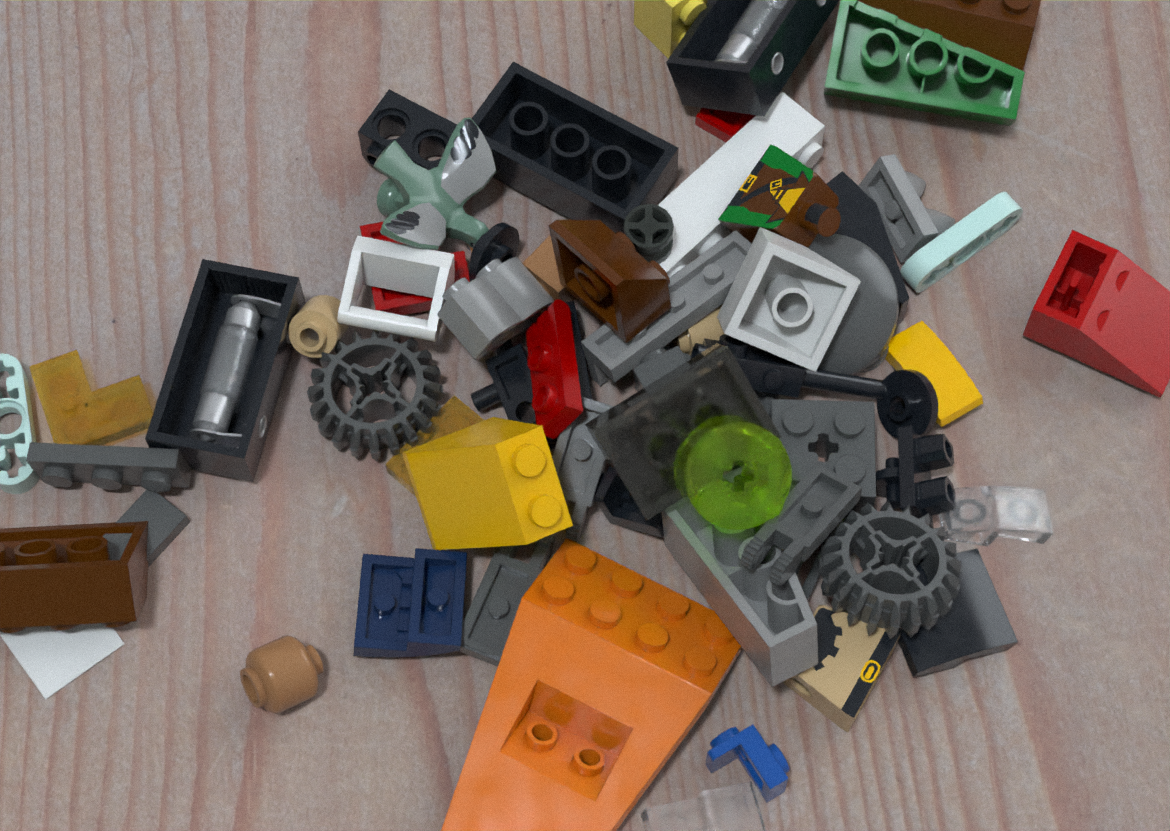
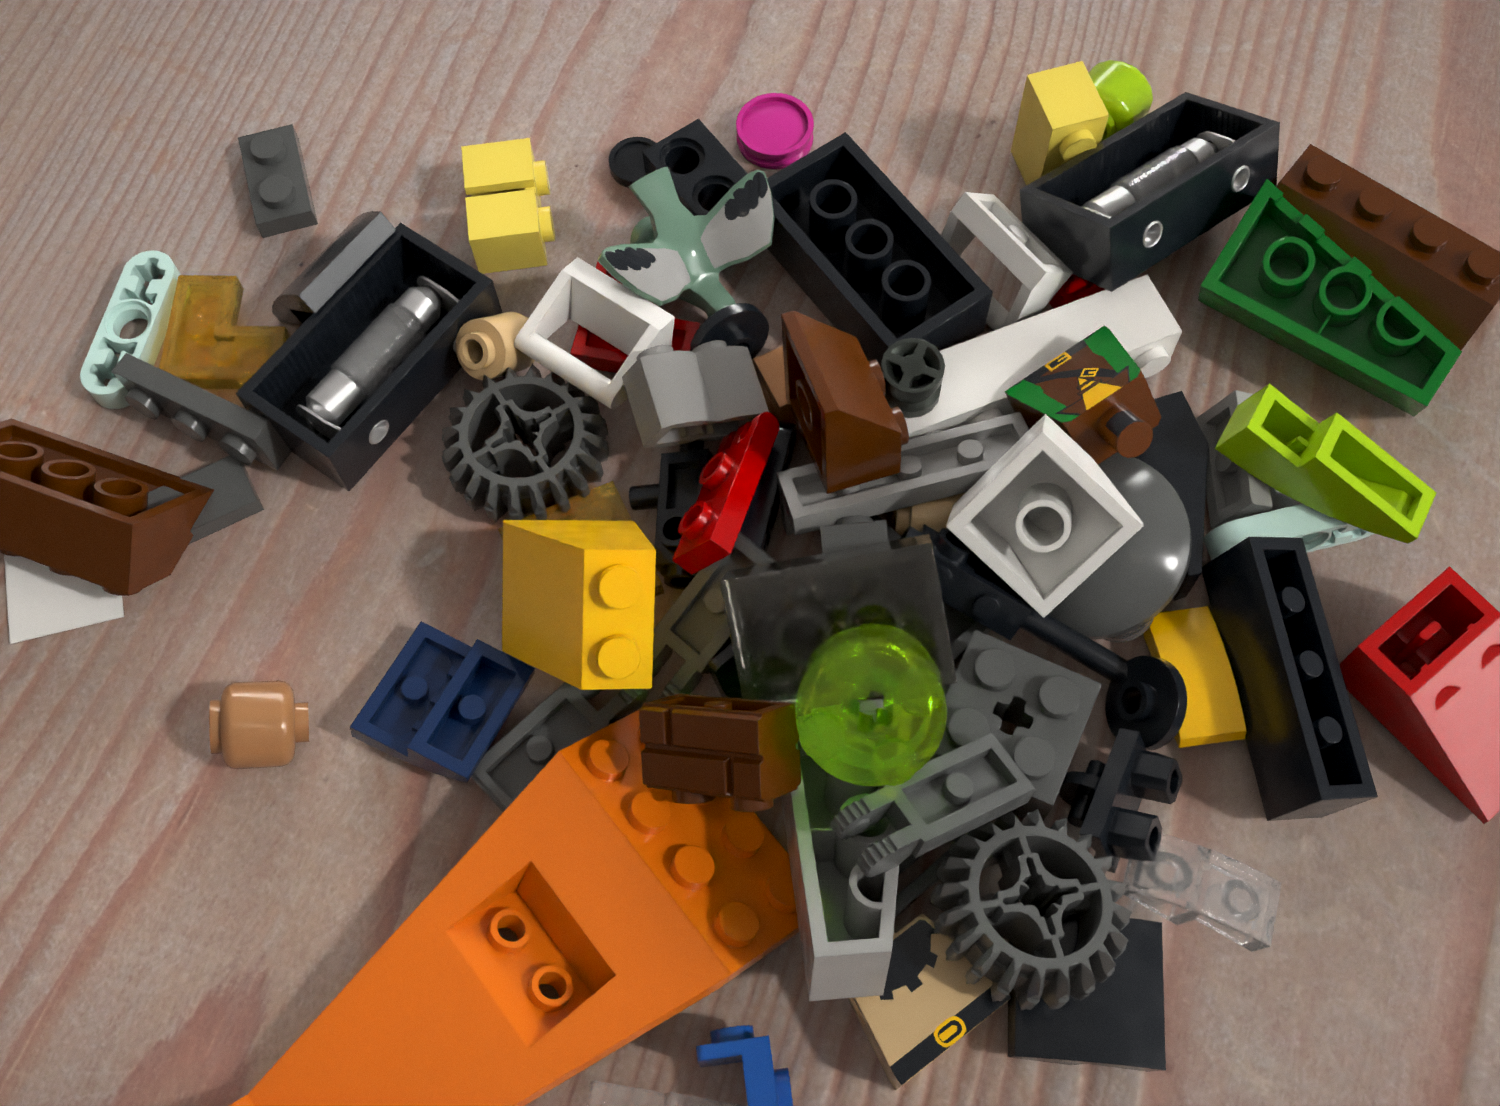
camera: 25 degrees right, 0 degrees up
(59, 260) = (277, 181): none -> dark grey plate
(159, 314) = (332, 268): none -> slope
(262, 210) = (505, 207): none -> light yellow piece
(341, 139) = (627, 160): none -> black piece
(444, 74) = (774, 130): none -> dark pink piece
(639, 546) = (720, 749): none -> reddish brown brick
(678, 106) = (1015, 247): none -> white tile
(962, 189) = (1325, 466): none -> lime slope
(994, 349) = (1287, 680): none -> black brick

